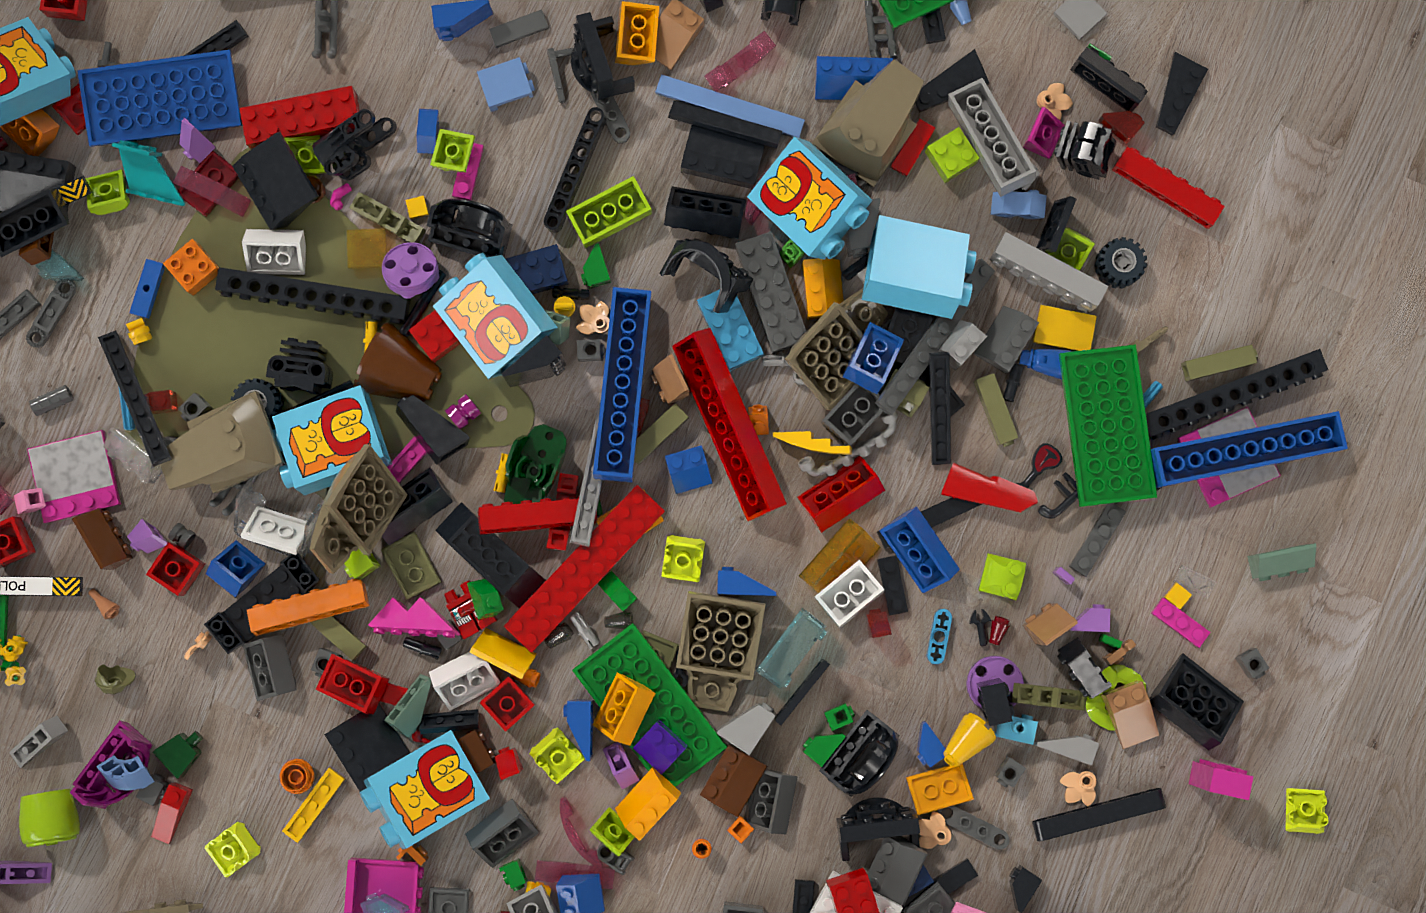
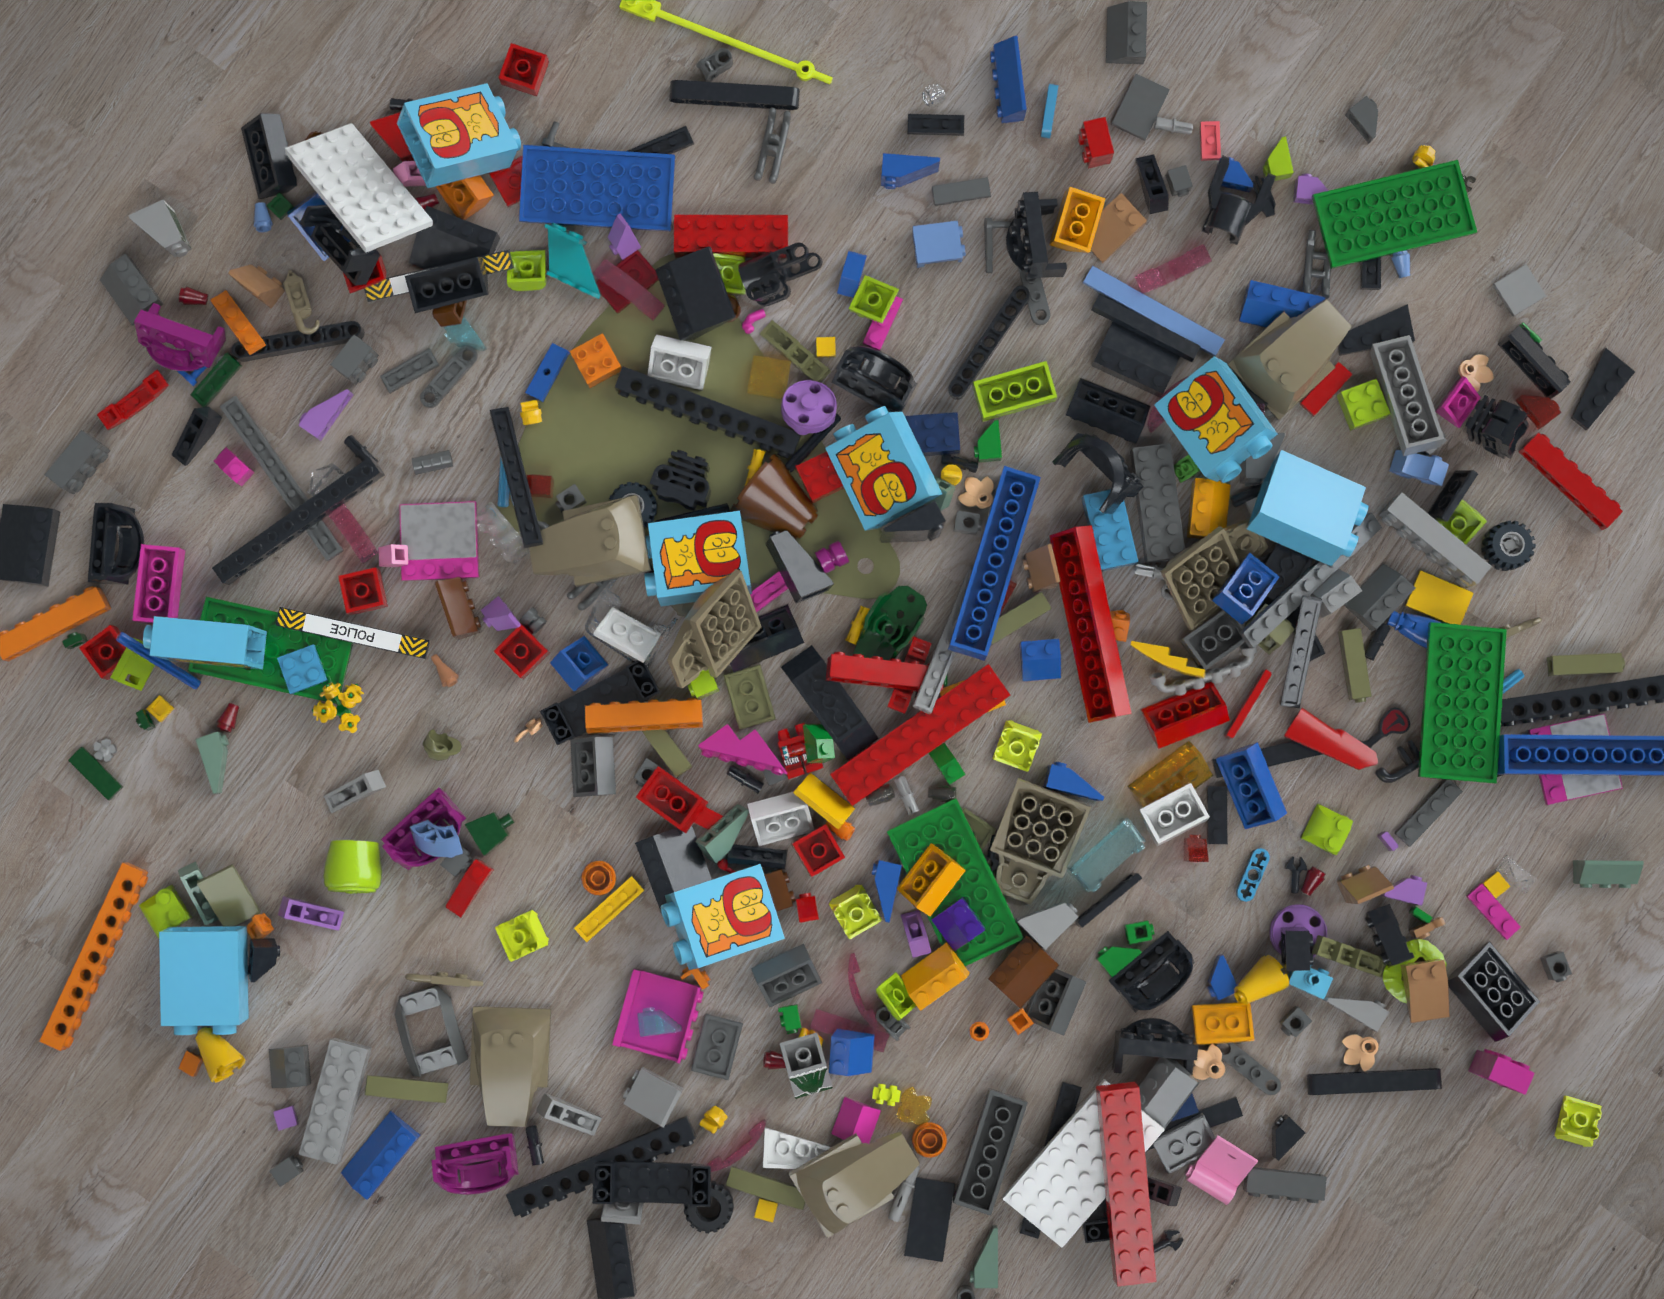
camera: 15 degrees right, 0 degrees up
(899, 472) = (1248, 704): none -> red tile

